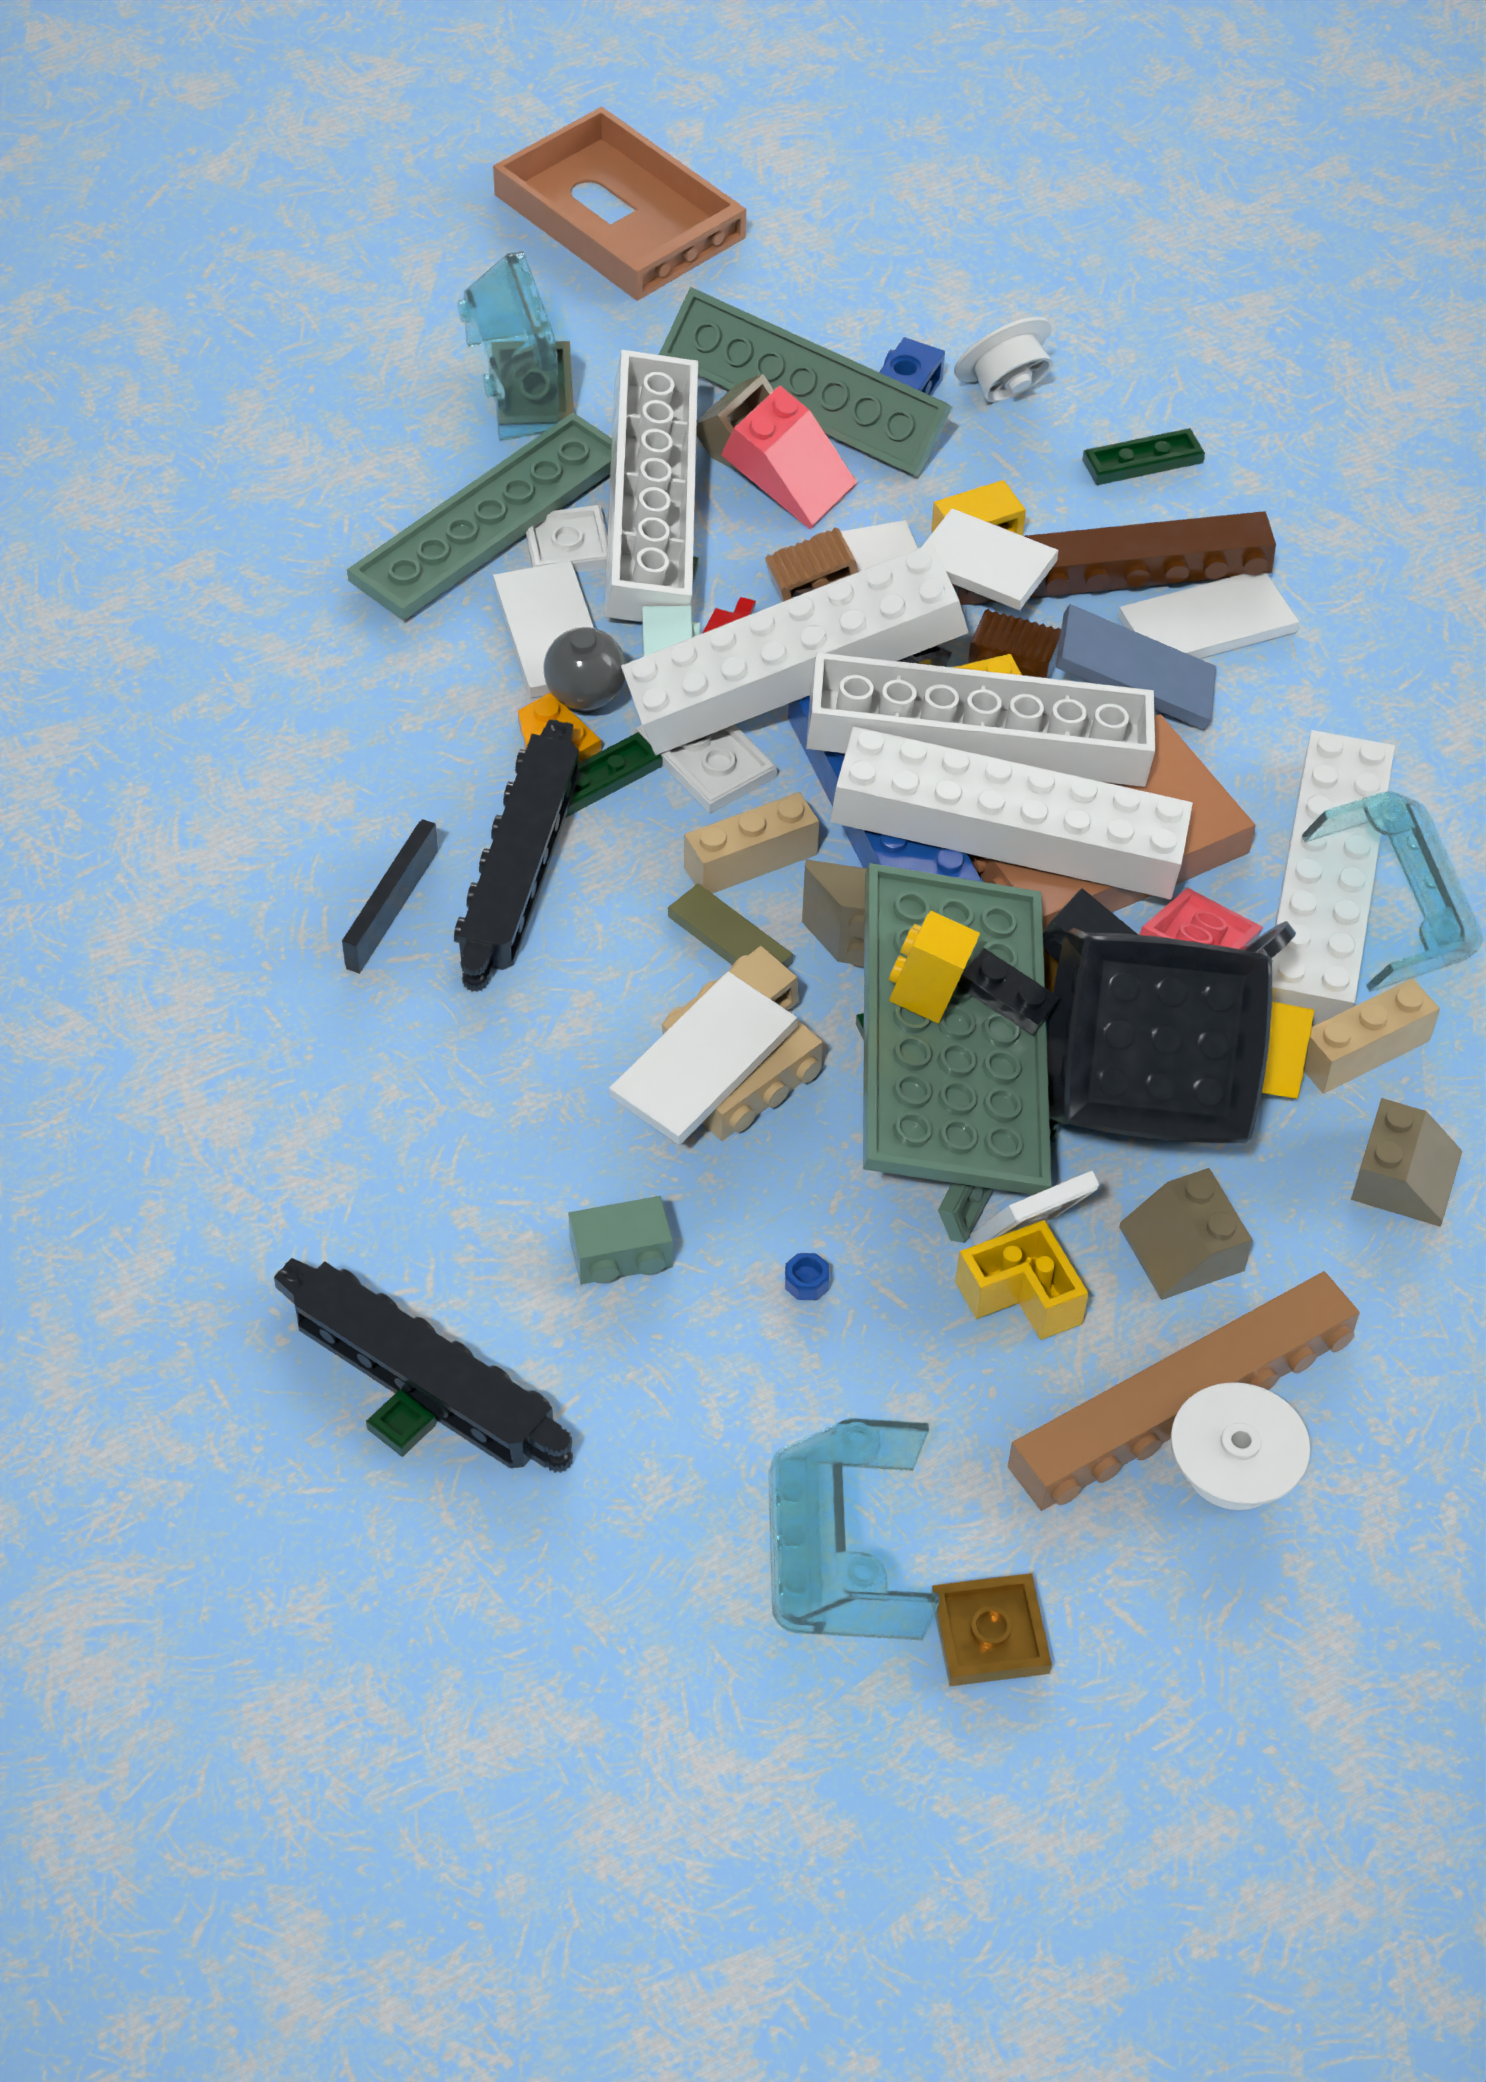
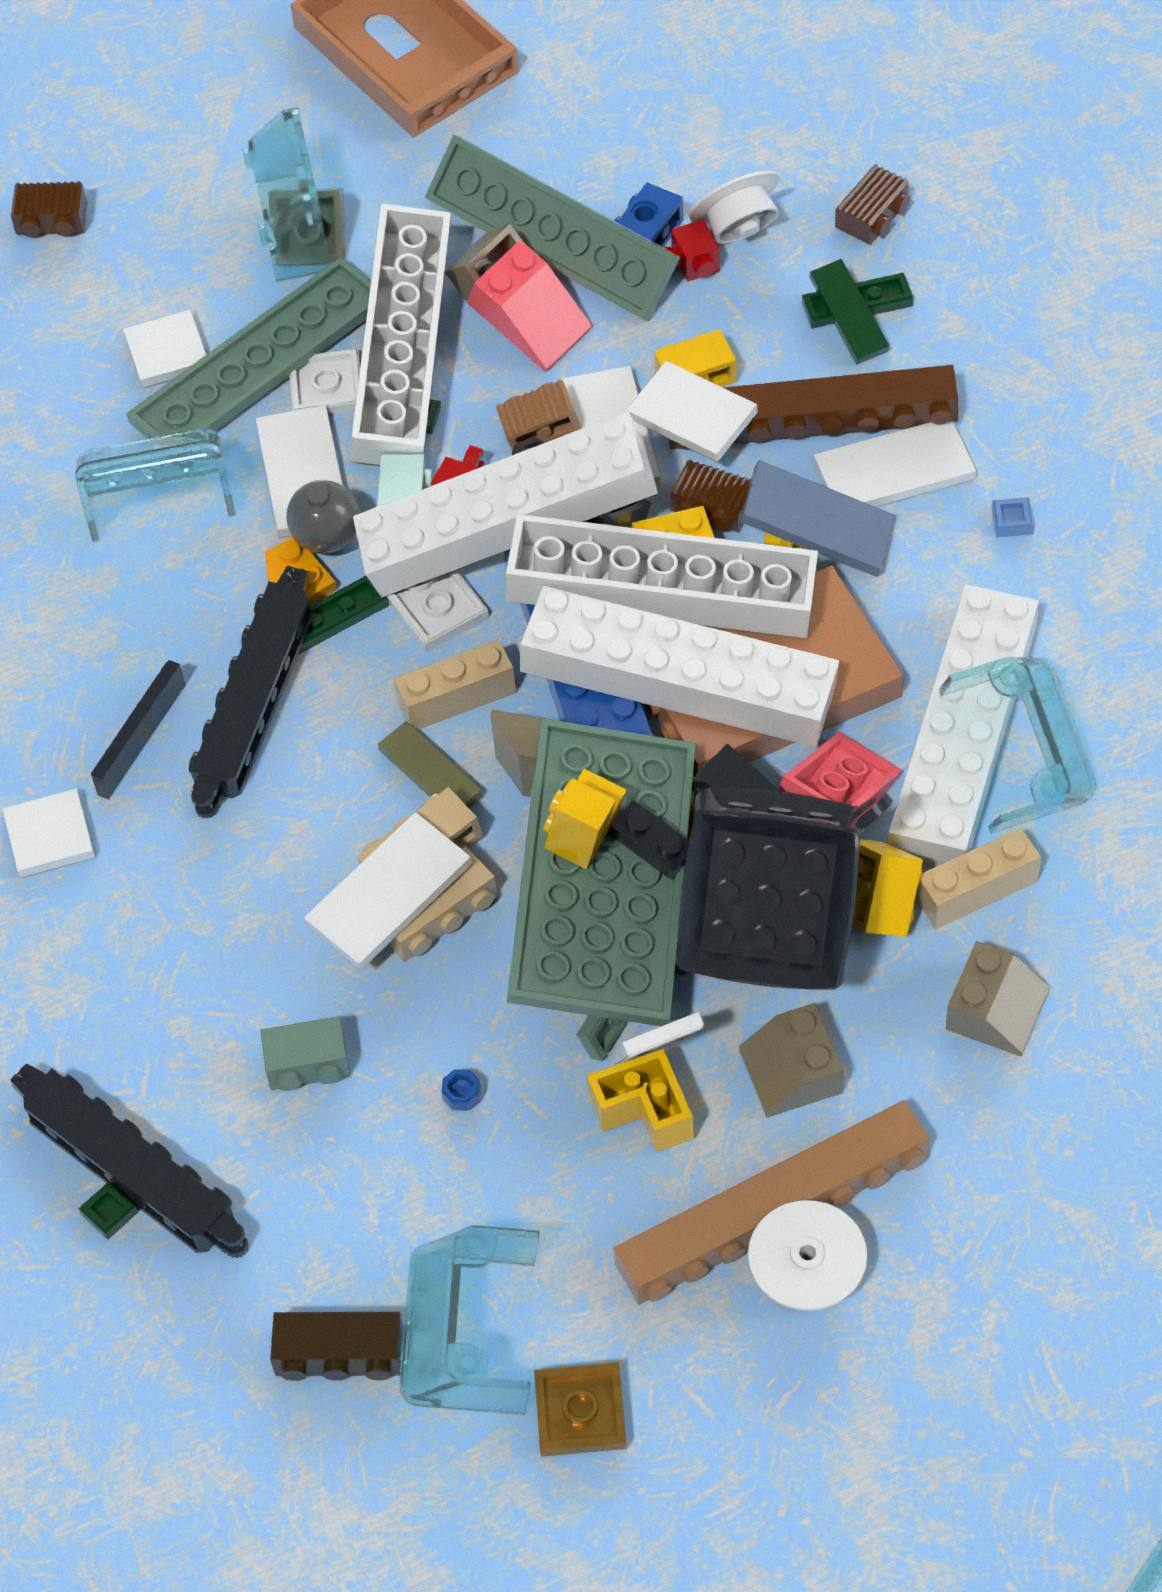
camera: 10 degrees right, 5 degrees up
(240, 366) = (49, 208): none -> reddish brown brick
(293, 1009) = (48, 833): none -> white tile
(381, 505) = (164, 347): none -> white tile
(387, 611) = (149, 464): none -> clear light blue windscreen
(694, 1565) = (336, 1345): none -> dark brown brick
(969, 403) = (696, 250): none -> red brick
(1139, 464) = (849, 311): none -> dark green tile
(1149, 362) = (872, 205): none -> reddish brown brick
(1344, 669) = (1012, 517): none -> medium blue tile

